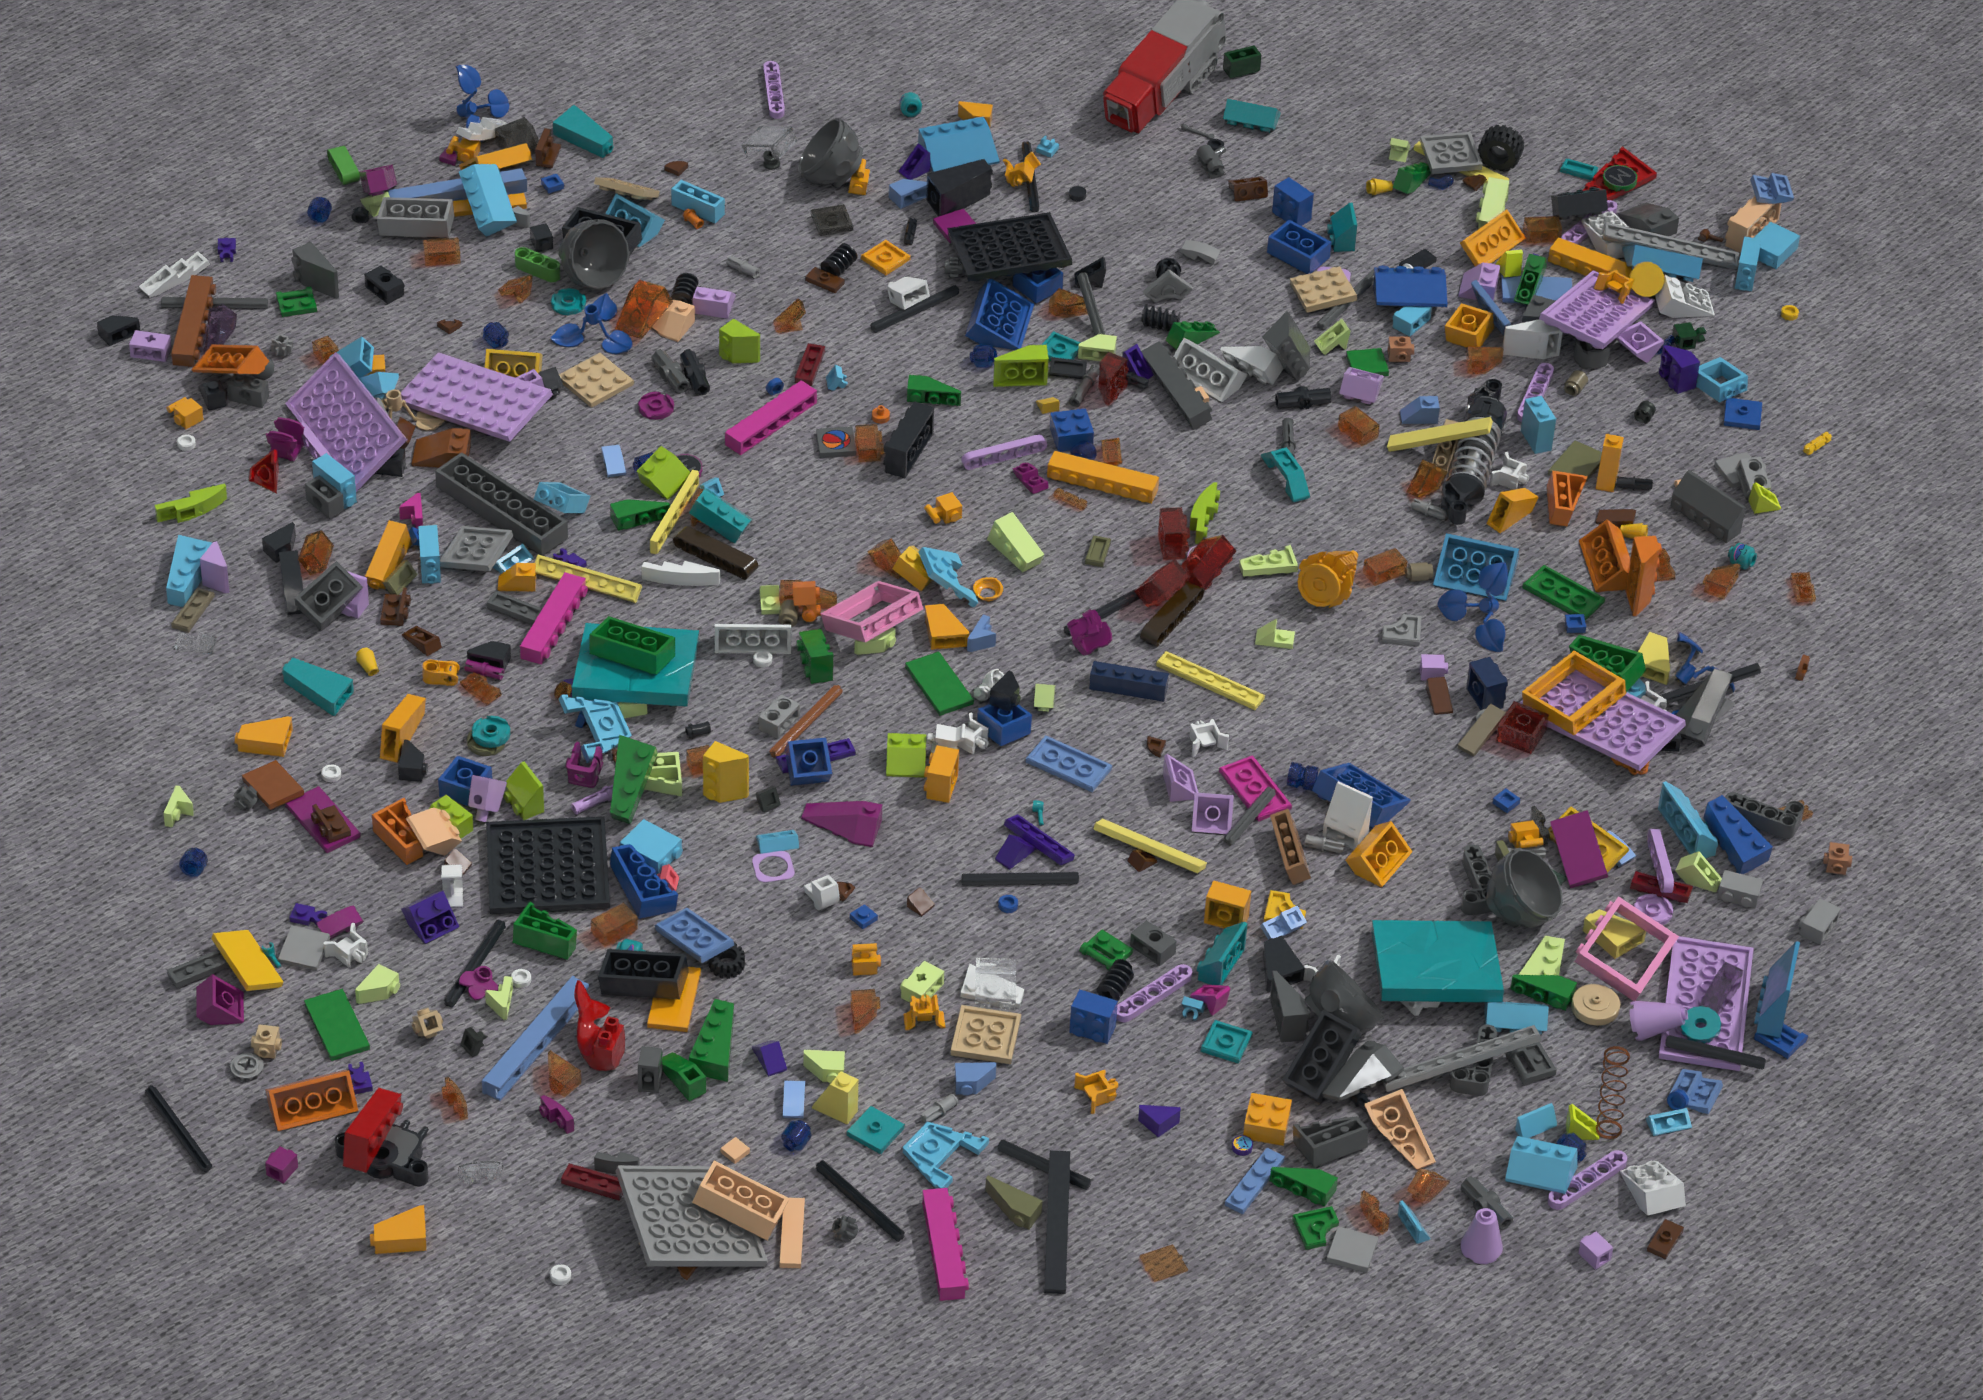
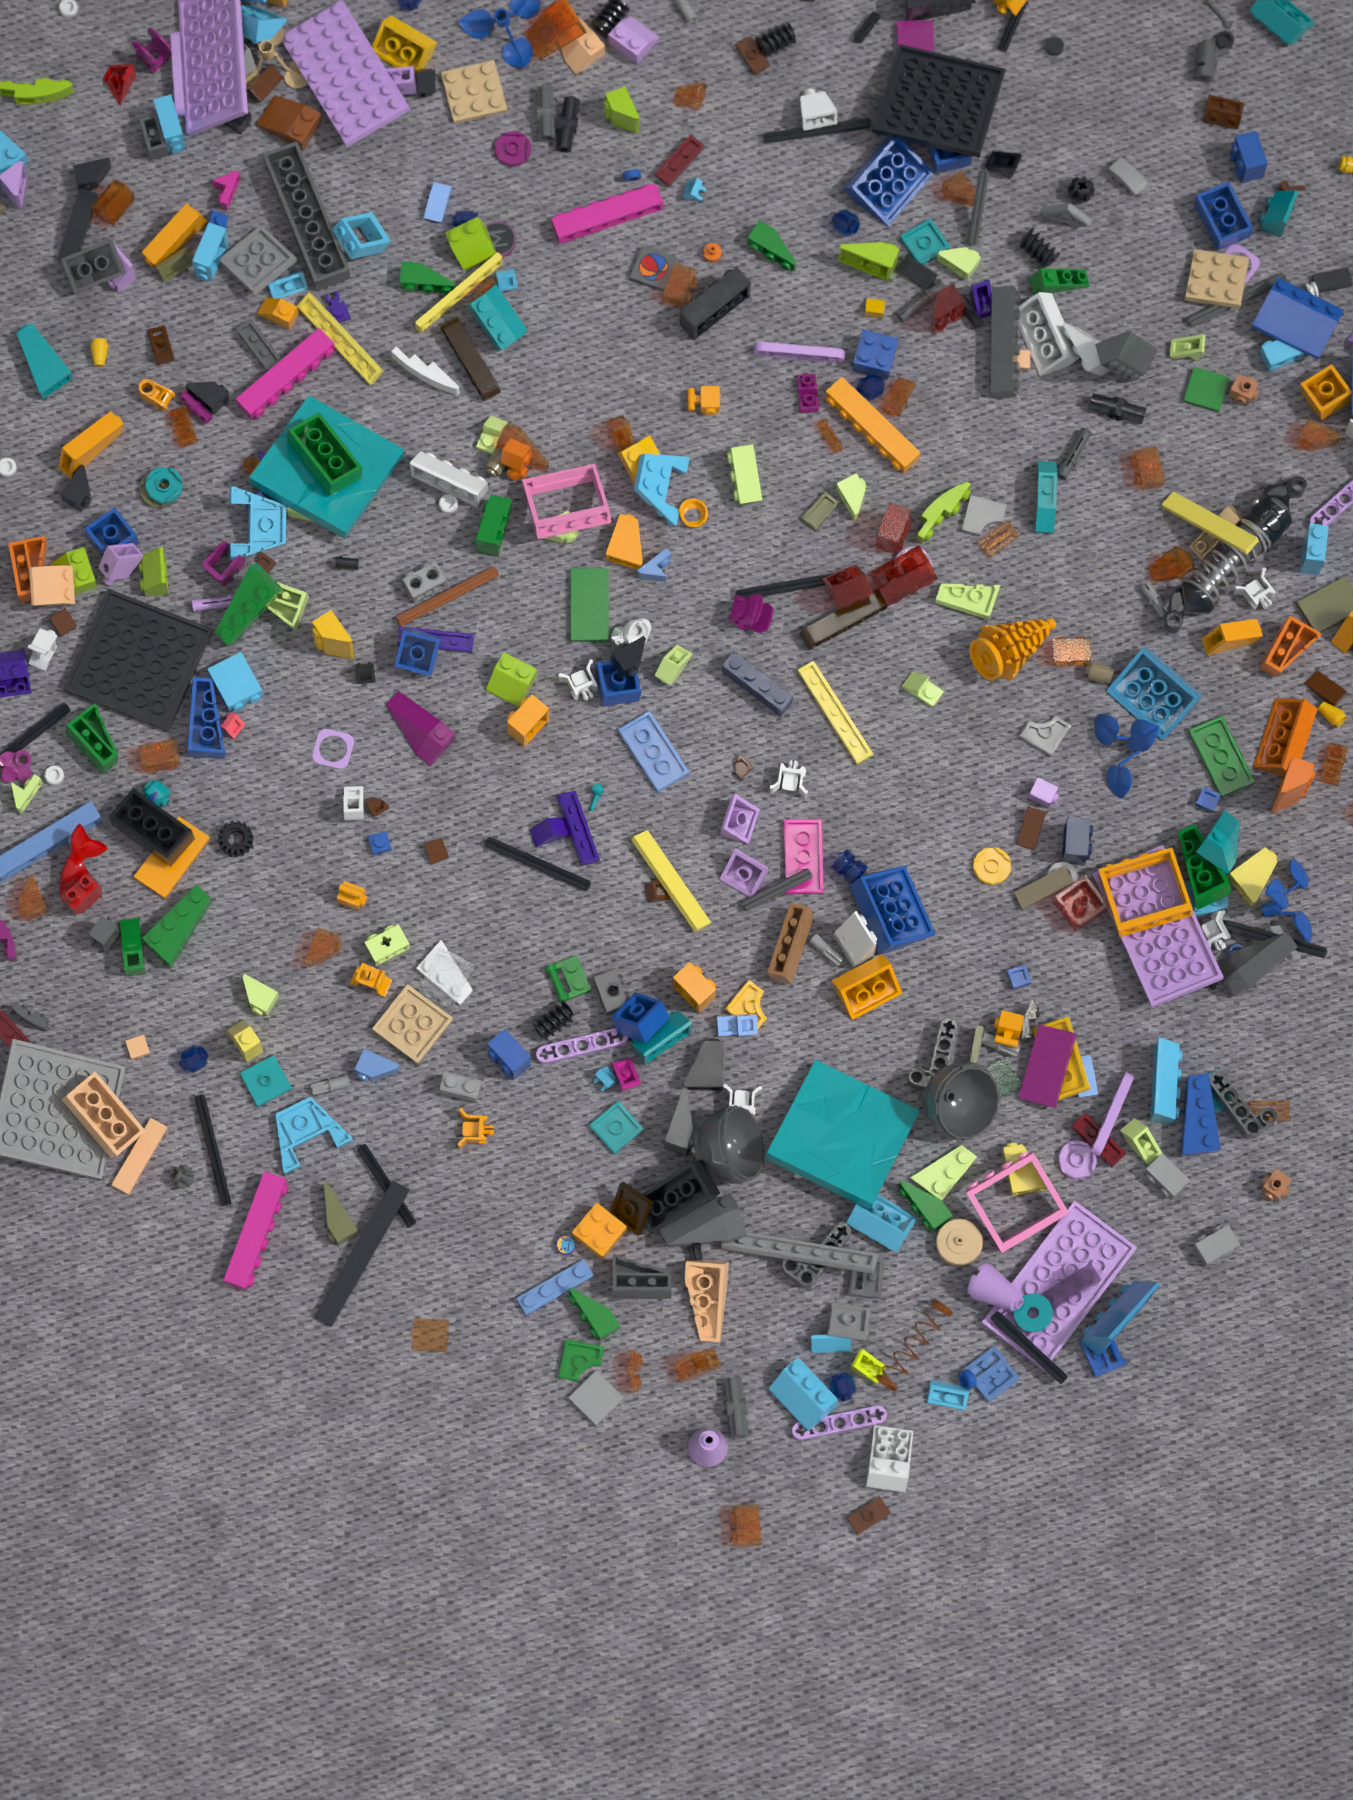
camera: 25 degrees right, 30 degrees up
(395, 608) = (154, 297): reddish brown bracket -> none
(694, 759) = (329, 600): clear orange brick -> none
(694, 935) = (220, 800): medium blue tile -> none
(770, 1057) = (218, 960): dark purple slope -> none
(777, 841) = (350, 722): medium azure slope -> none
(794, 1099) = (213, 1017): light blue slope -> none
(885, 257) = (825, 50): light orange tile -> none
(946, 736) = (551, 684): white piece -> none
(1008, 903) = (512, 886): blue tile -> none
(1063, 1061) = (460, 1087): none -> light grey brick
(1118, 528) = (852, 493): none -> yellowish green slope
(1159, 1118) = (508, 1186): dark purple slope -> none
(1195, 941) = (640, 1017): none -> blue brick
(1239, 505) = (982, 513): none -> light grey tile
(1265, 506) = (1010, 530): none -> clear orange tile
(1287, 1083) = (631, 1208): none -> dark brown tile
(1361, 385) = (1181, 417): lavender slope -> none
(1412, 1223) = (663, 1397): medium azure slope -> none
(1421, 411) = (1218, 475): medium blue slope -> none
(1427, 740) = (986, 866): none -> yellow tile
(1541, 1096) = (848, 1321): none -> light grey tile
(1562, 1287) = (747, 1526): none -> clear orange brick
(1595, 1250) = (798, 1500): lavender brick -> none
(1612, 633) = (1222, 842): none -> teal wedge

